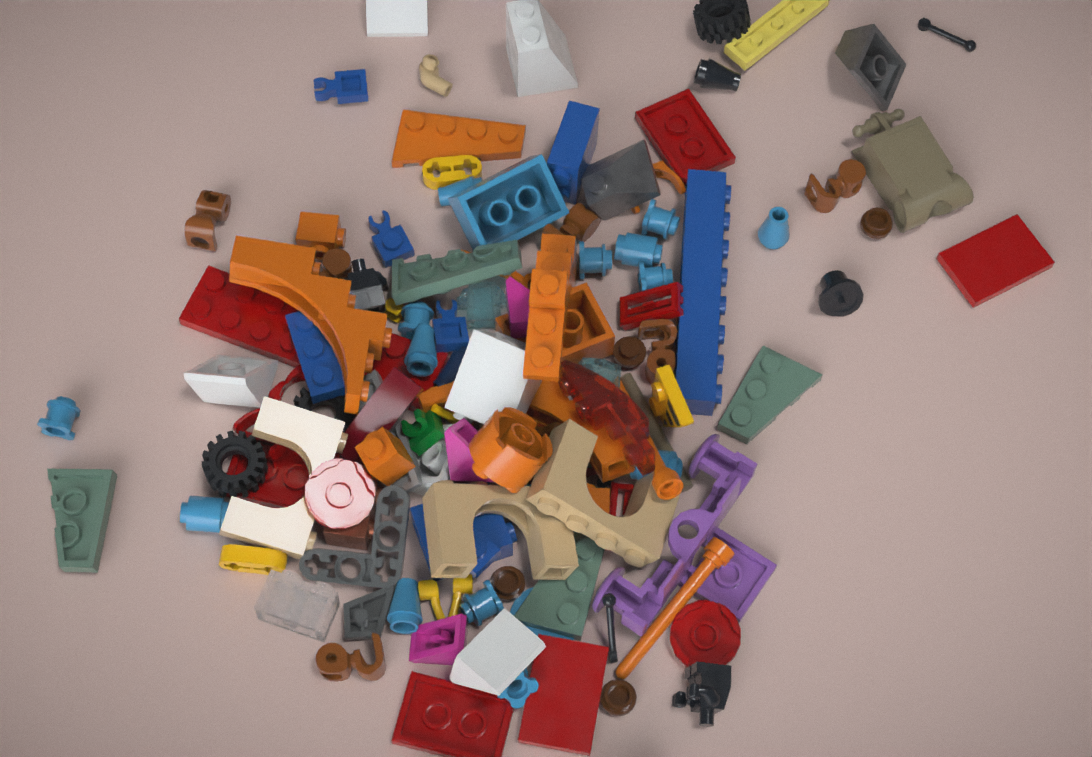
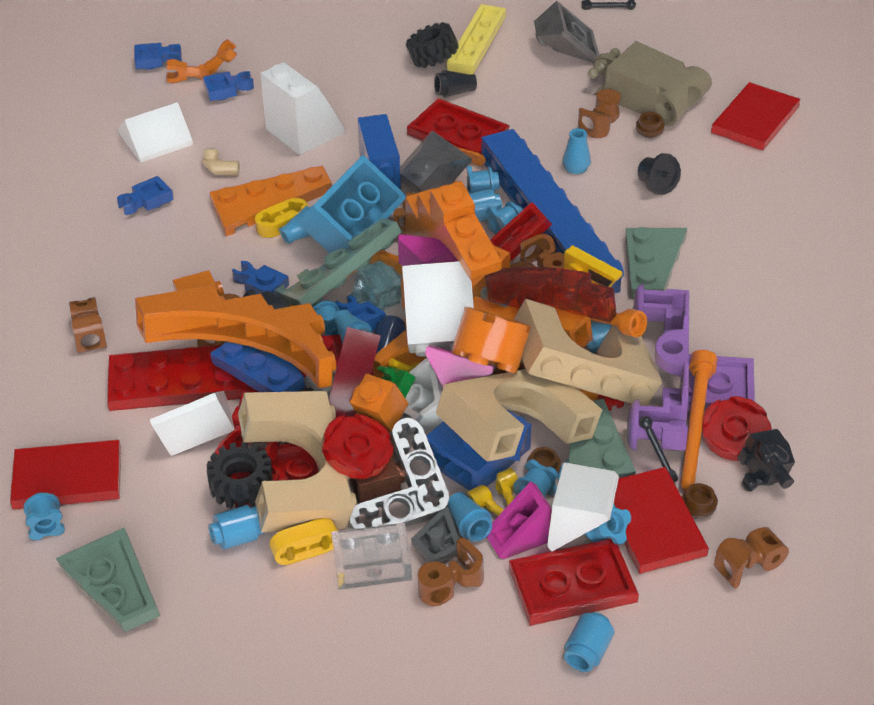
camera: 25 degrees left, 20 degrees down
(106, 379) = (68, 471): none -> red tile

